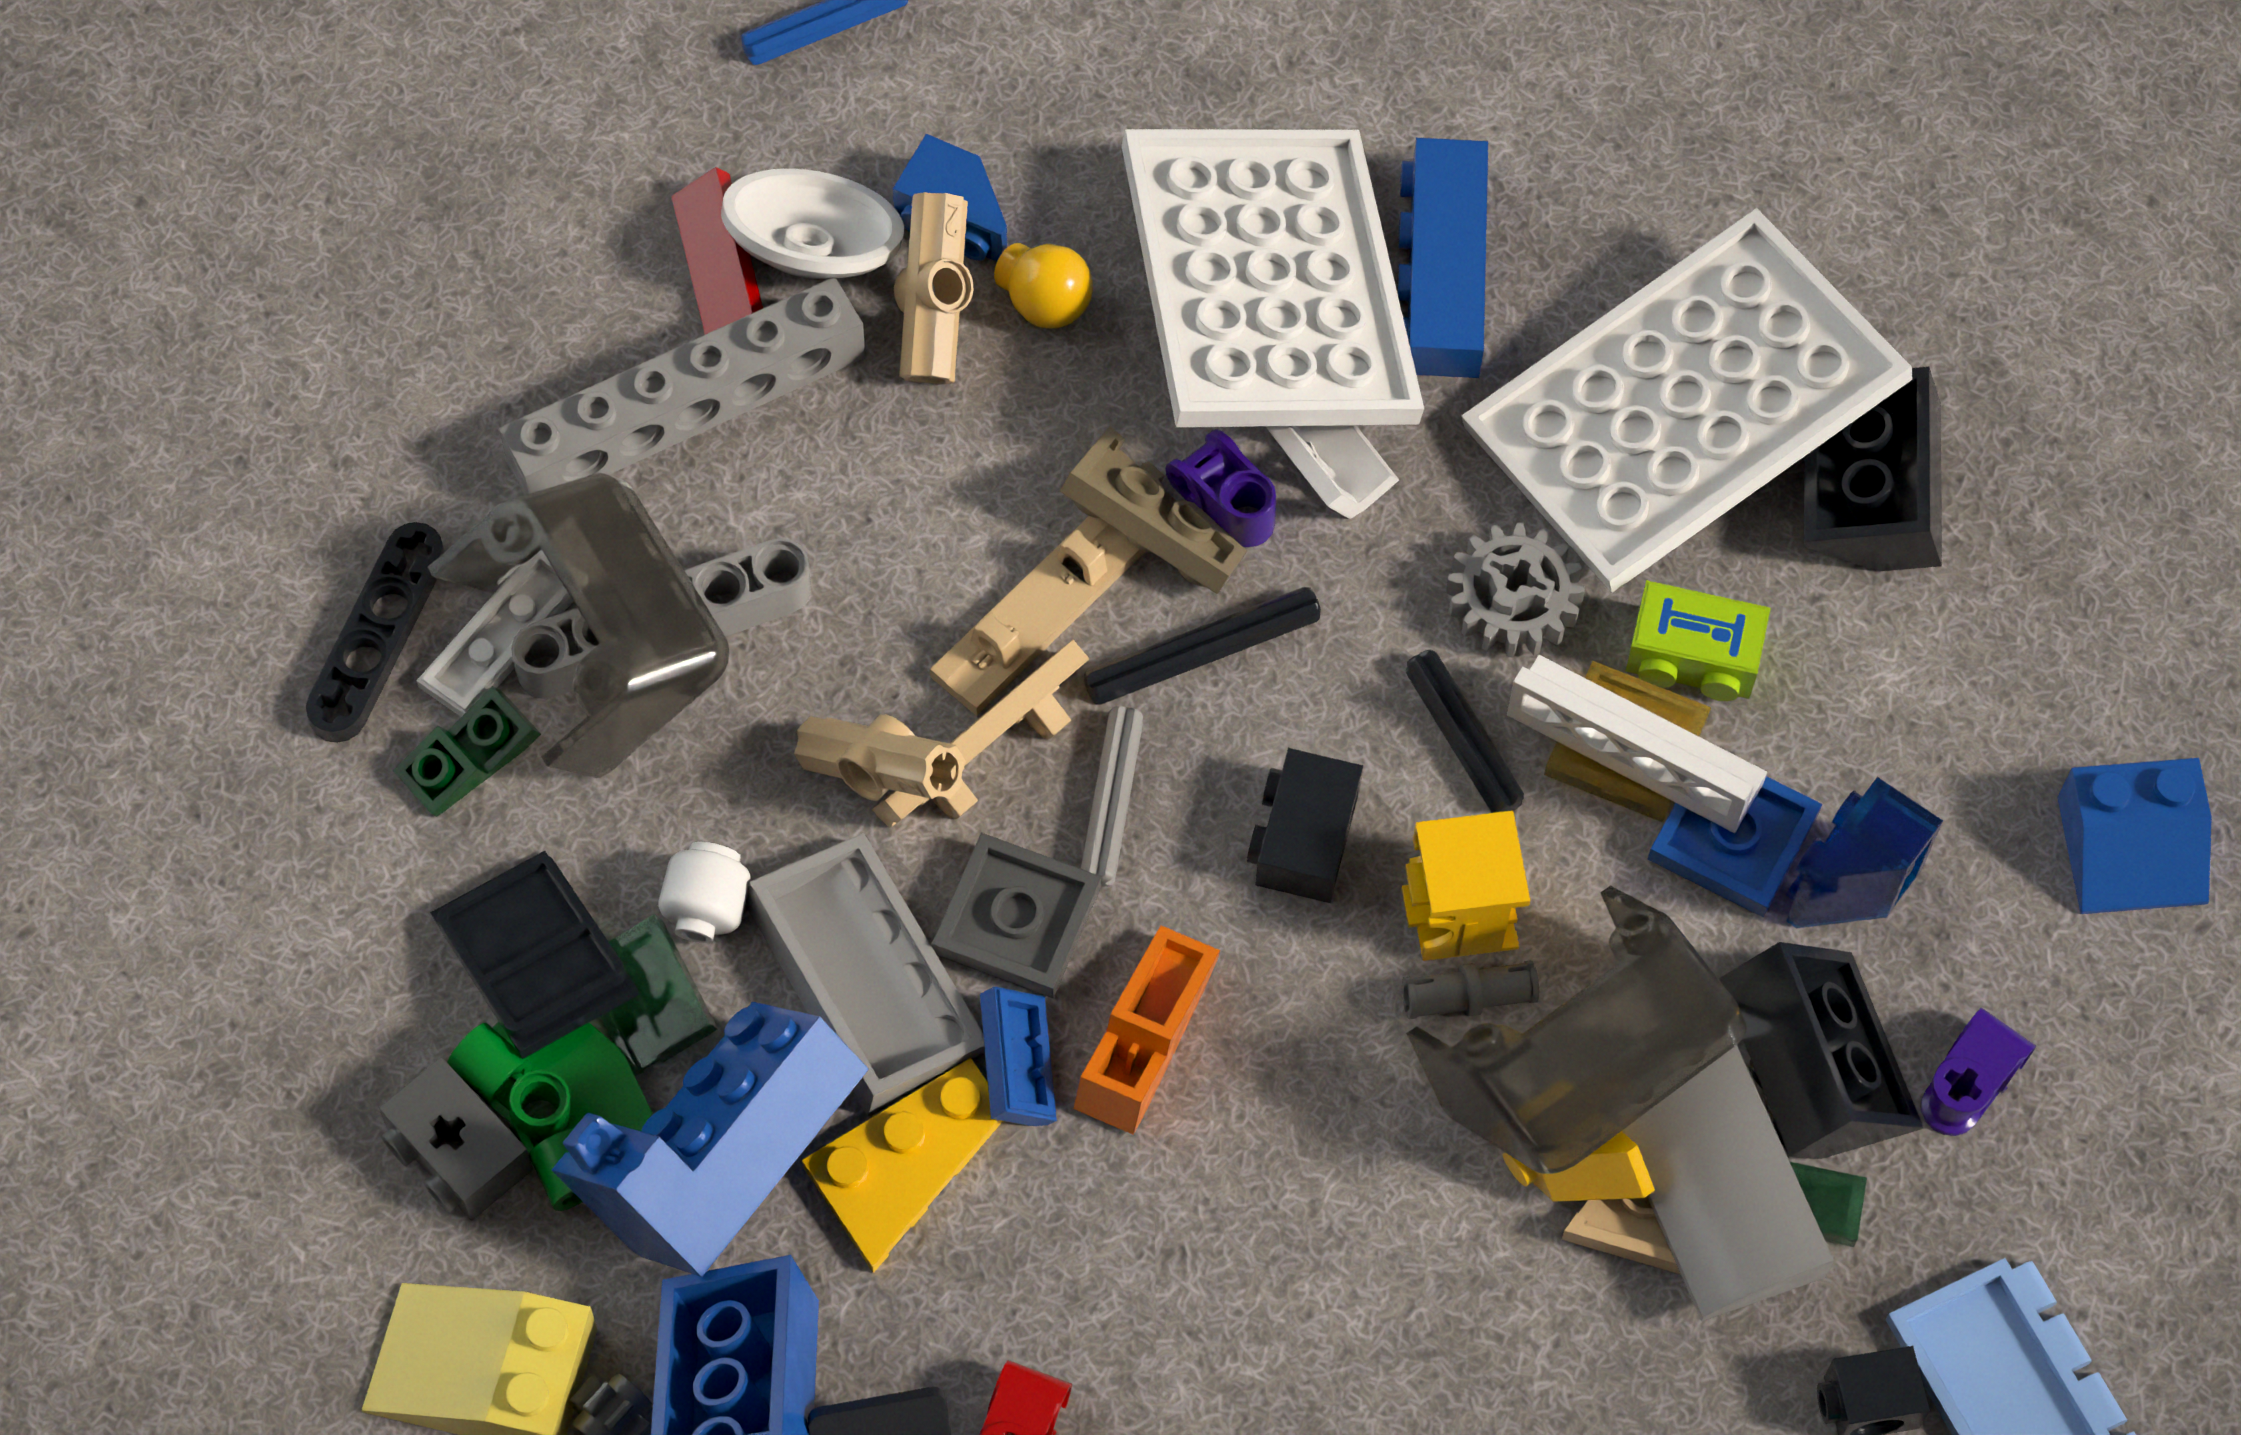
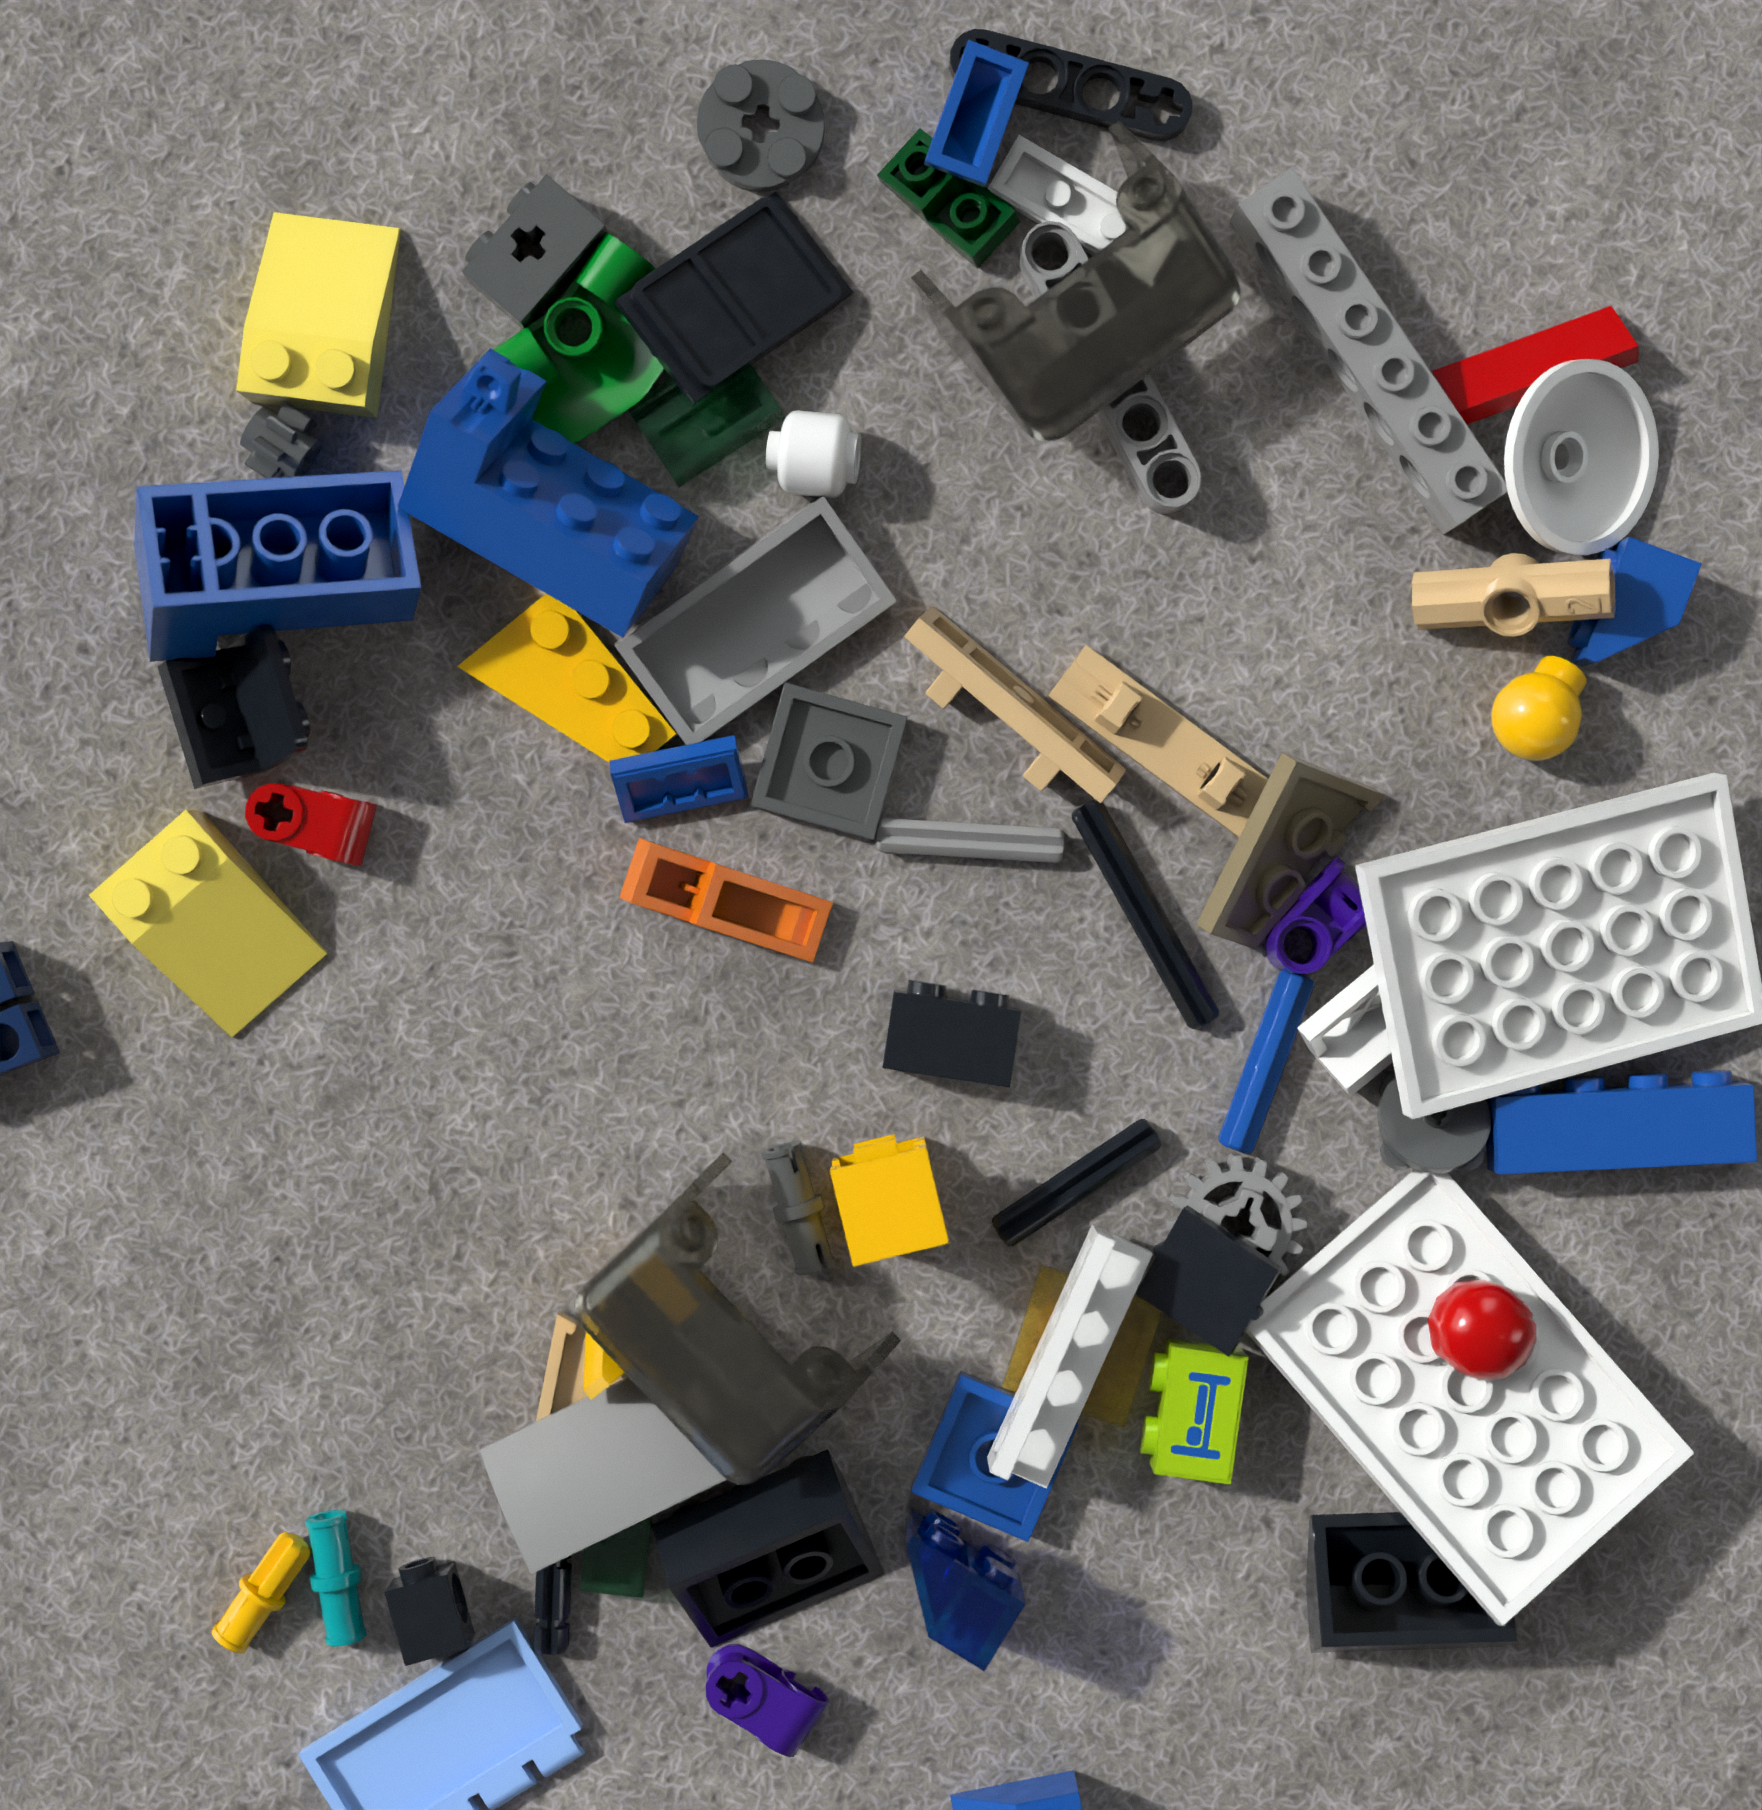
camera: 90 degrees right, 25 degrees up
(344, 886) = (783, 153): none -> dark grey plate
(391, 706) = (976, 113): none -> blue slope
(880, 757) = (959, 607): tan piece -> none
(1359, 552) = (1266, 1062): none -> blue axle
(1450, 409) = (1432, 1142): none -> dark grey piece
(1568, 605) = (1208, 1280): none -> black piece
(1629, 371) = (1482, 1329): none -> red hair
(1873, 1277) = (552, 1608): none -> black axle

